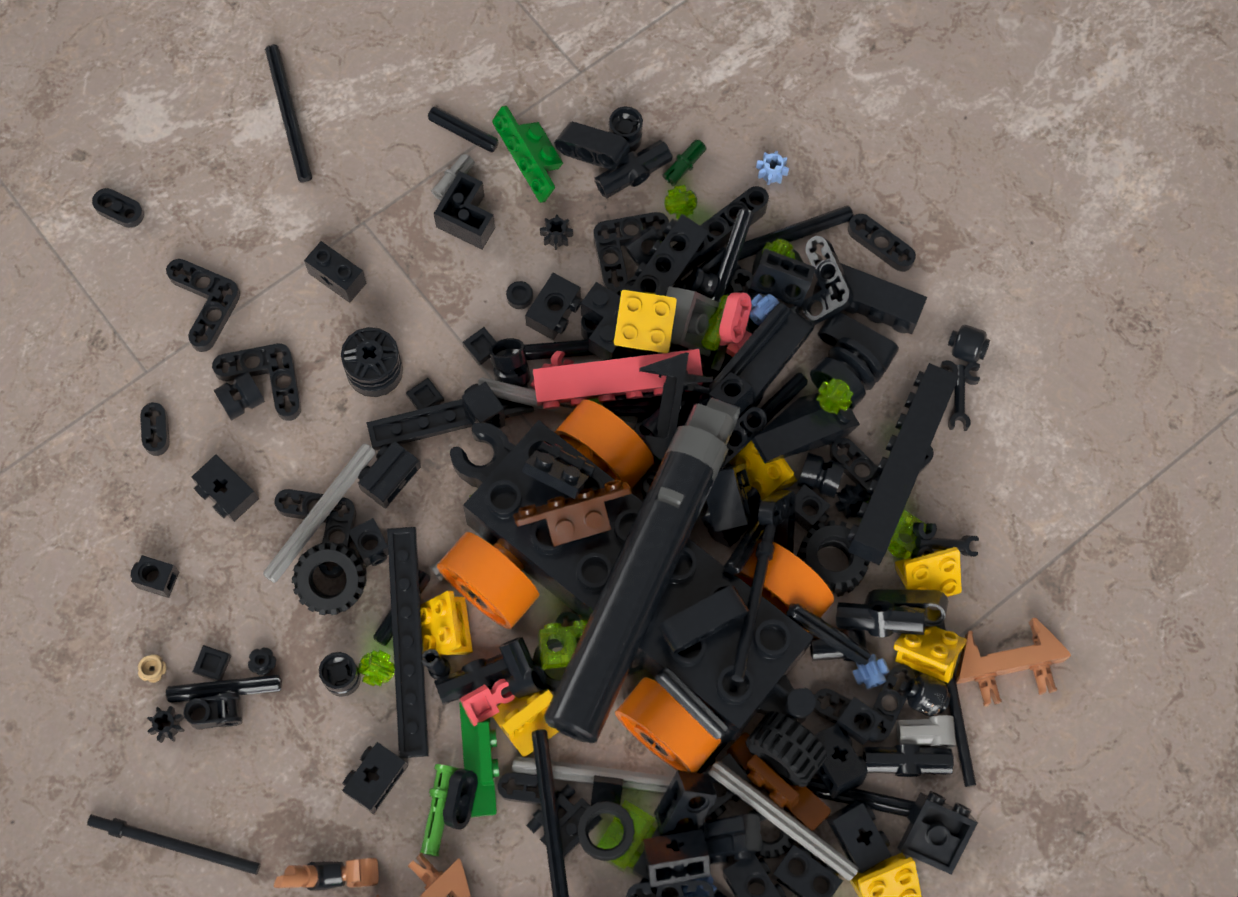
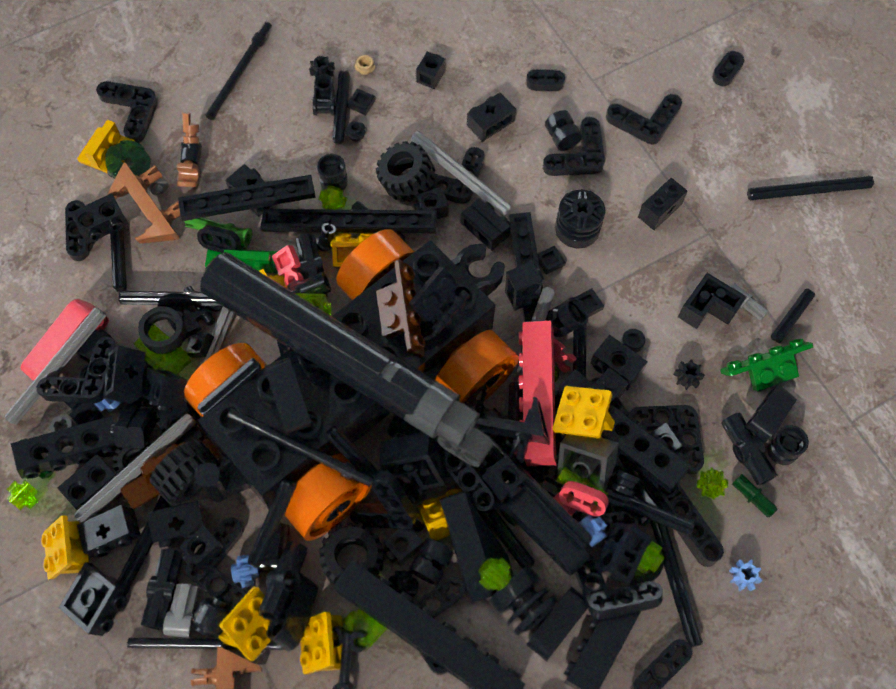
camera: 100 degrees right, 5 degrees down
(400, 770) = (246, 197): none -> black plate

